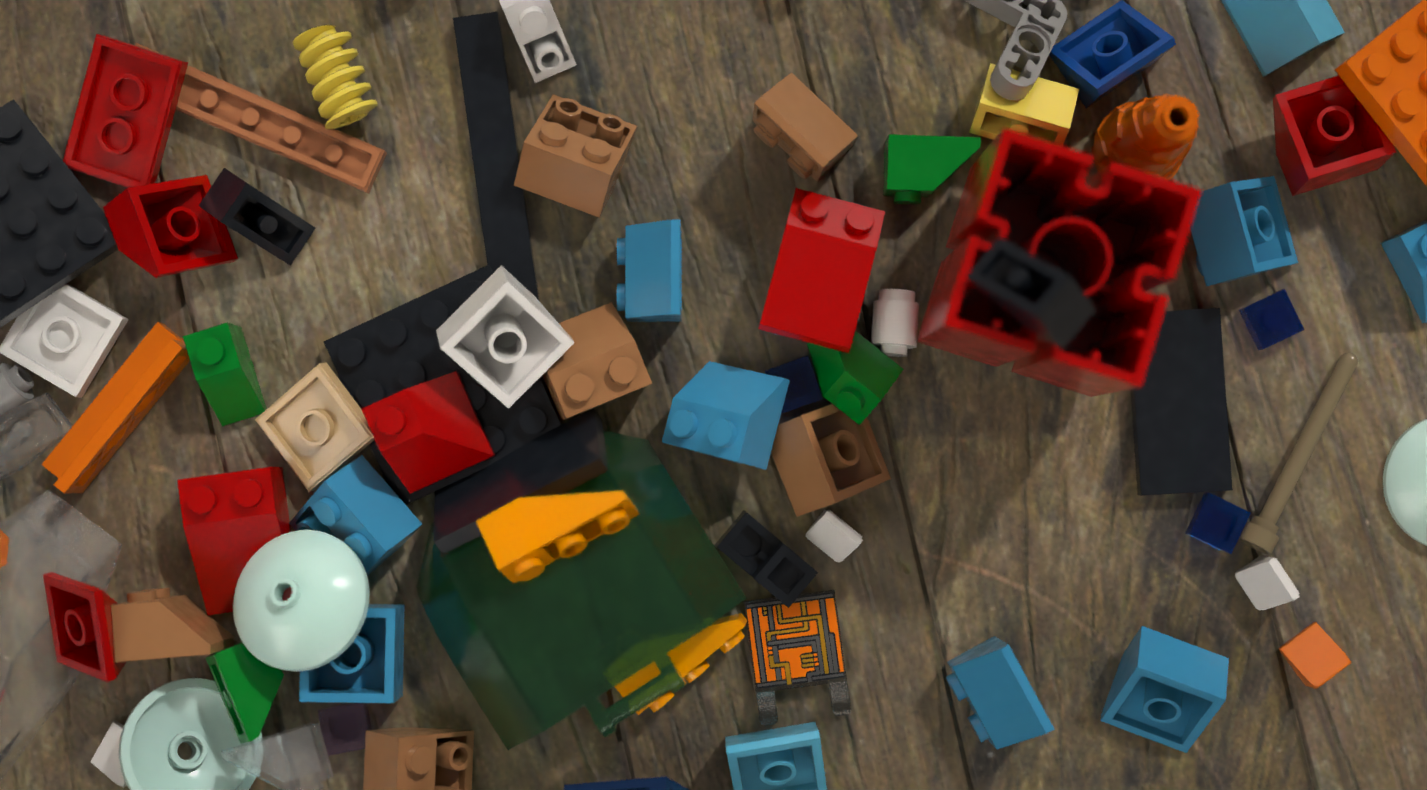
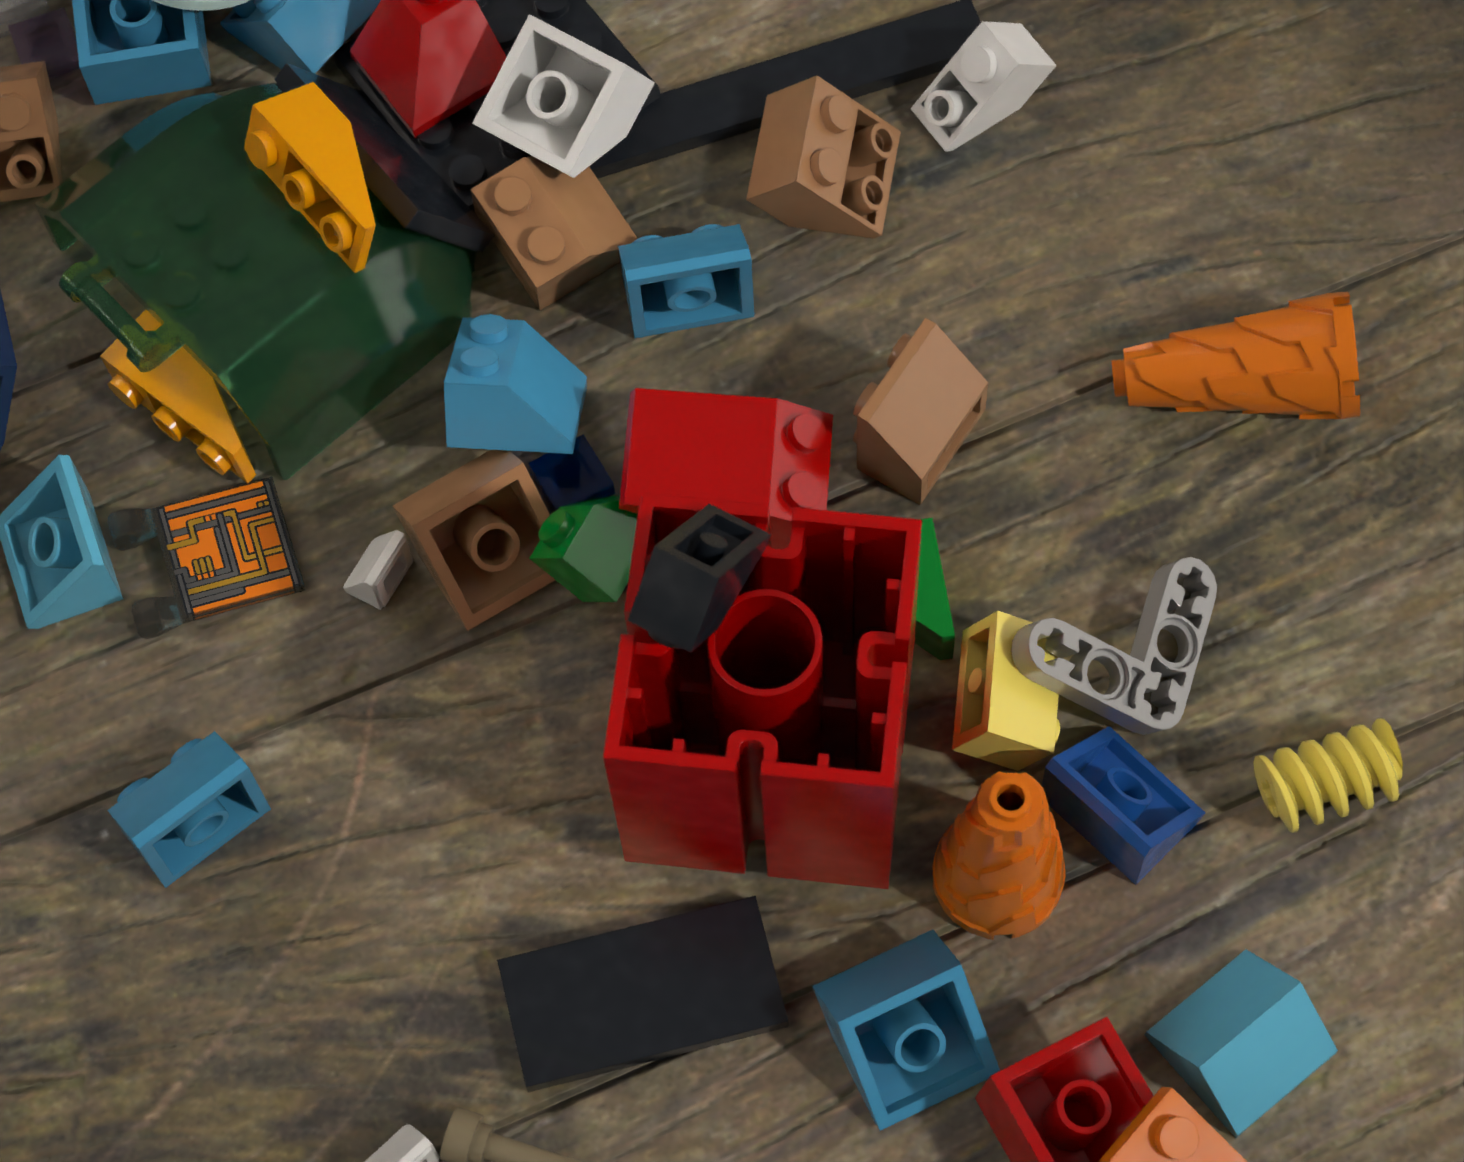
camera: 85 degrees right, 20 degrees down
(766, 558) = (335, 491): black slope -> none
(1166, 689) = (224, 1040): dark azure slope -> none
(1218, 523) = (474, 1074): clear blue plate -> none
(1271, 319) = (787, 1104): clear blue plate -> none

